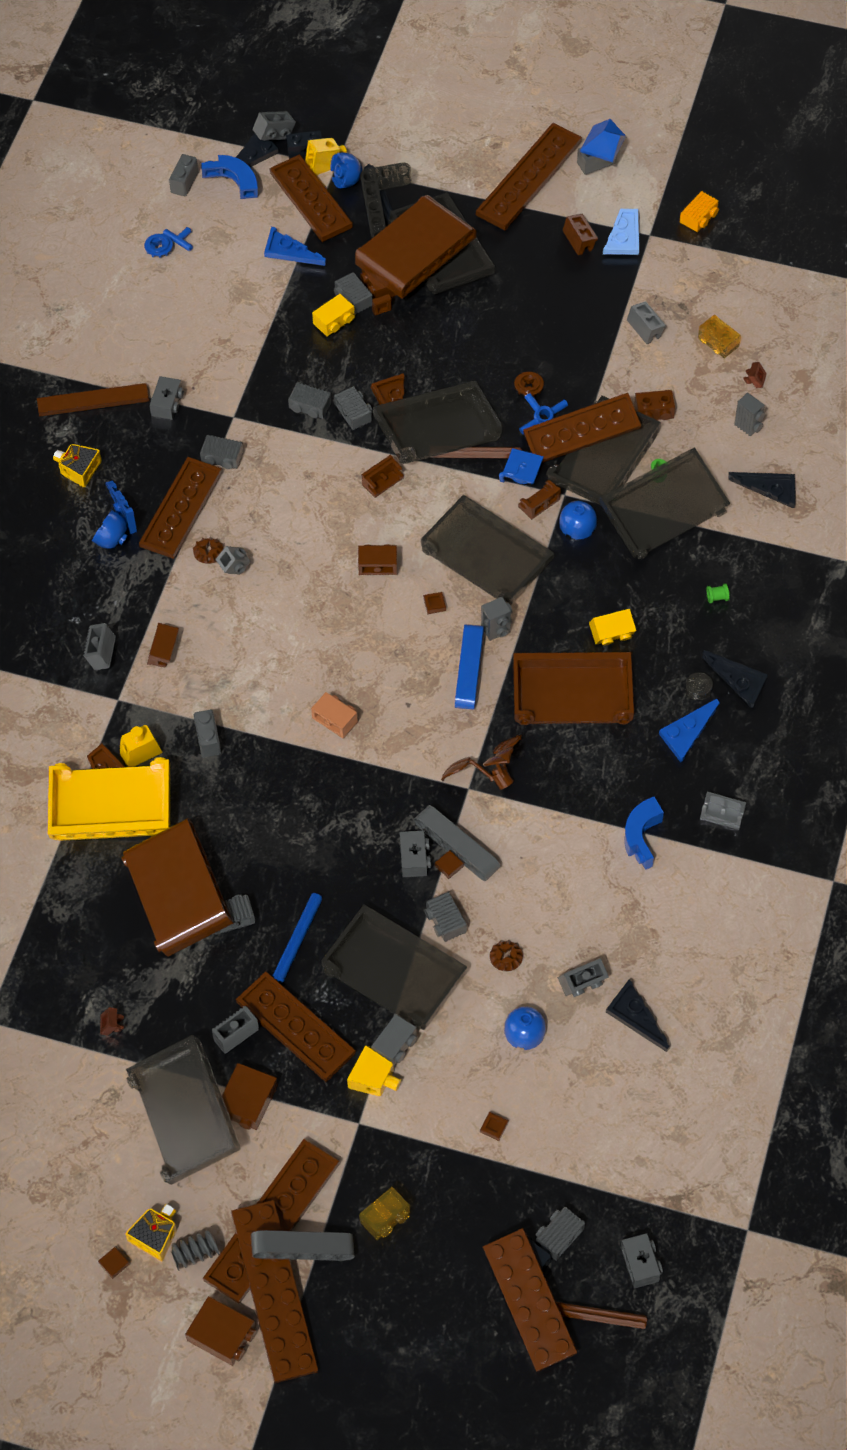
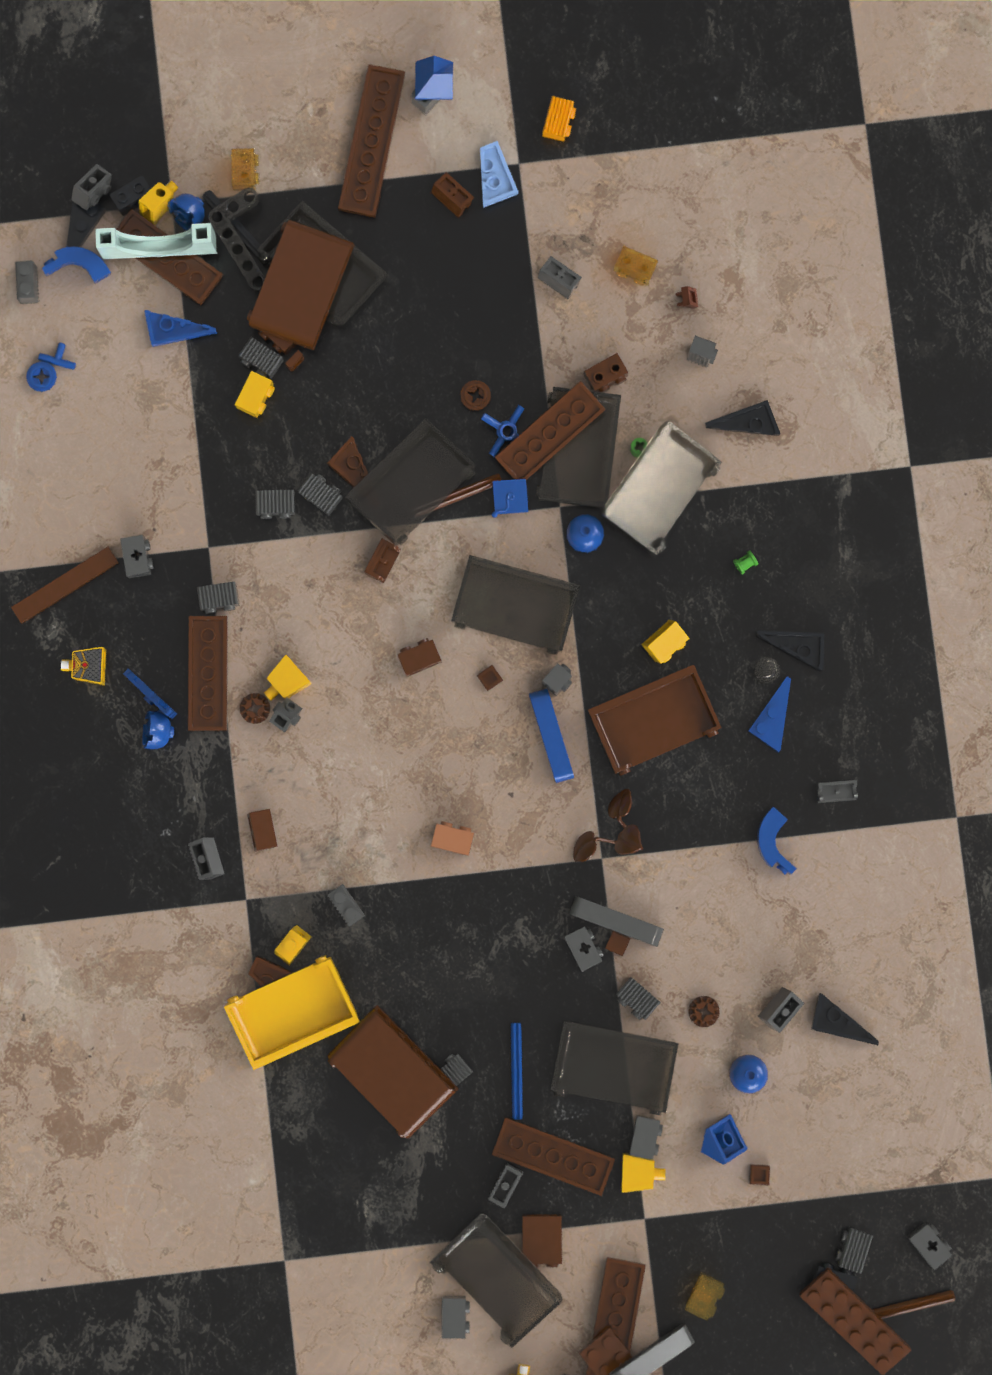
camera: 20 degrees left, 25 degrees up
(109, 1020) = (392, 1220): copper tile -> none
(124, 1132) = (454, 1317): none -> dark grey brick
(249, 535) = (286, 680): none -> yellow torso
(273, 168) = (117, 245): none -> light aqua arch
(413, 154) = (244, 169): none -> clear yellow brick
(471, 1075) = (723, 1141): none -> blue slope
(540, 500) = (540, 525): reddish brown hinge -> none

